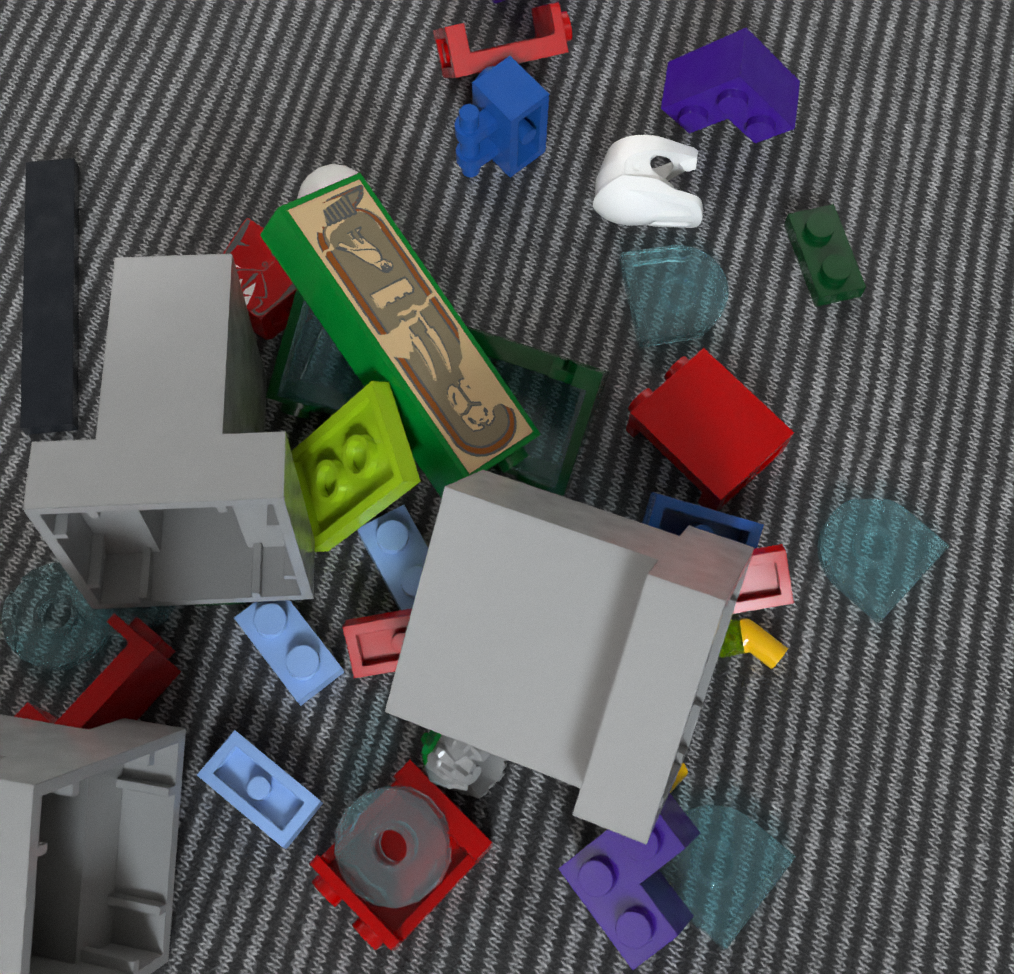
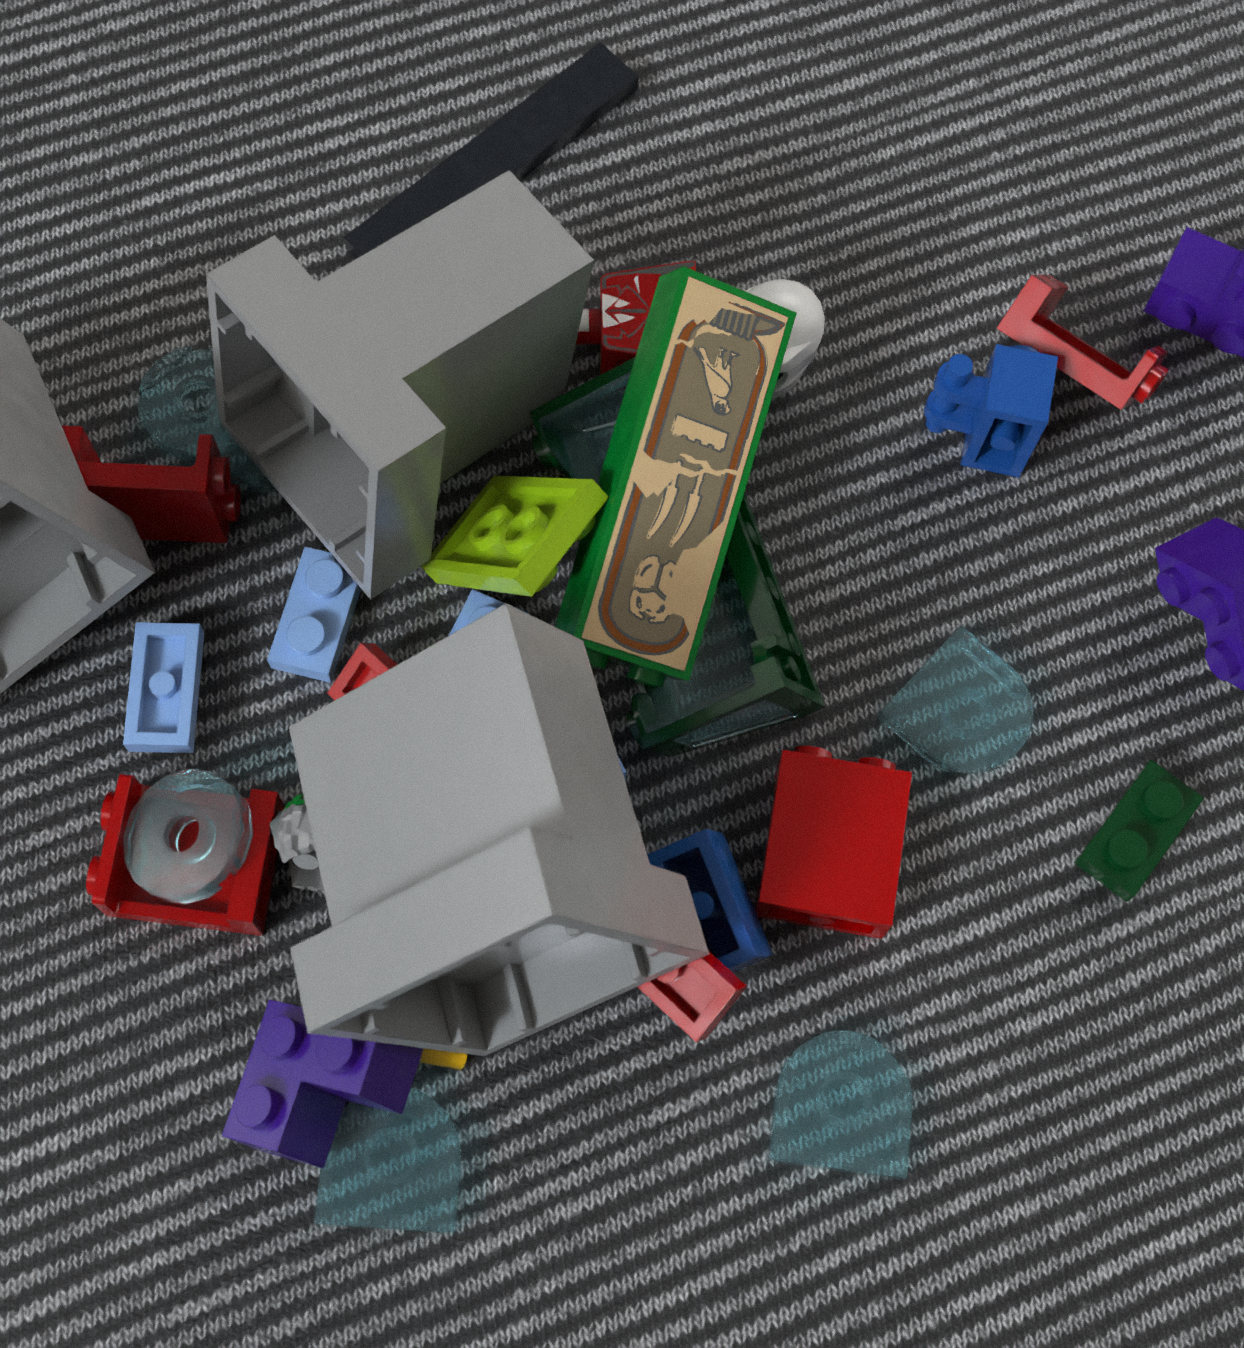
camera: 50 degrees right, 0 degrees up
(637, 194) = (1035, 585): white helmet -> none
(748, 637) = (644, 1030): yellow arm -> none

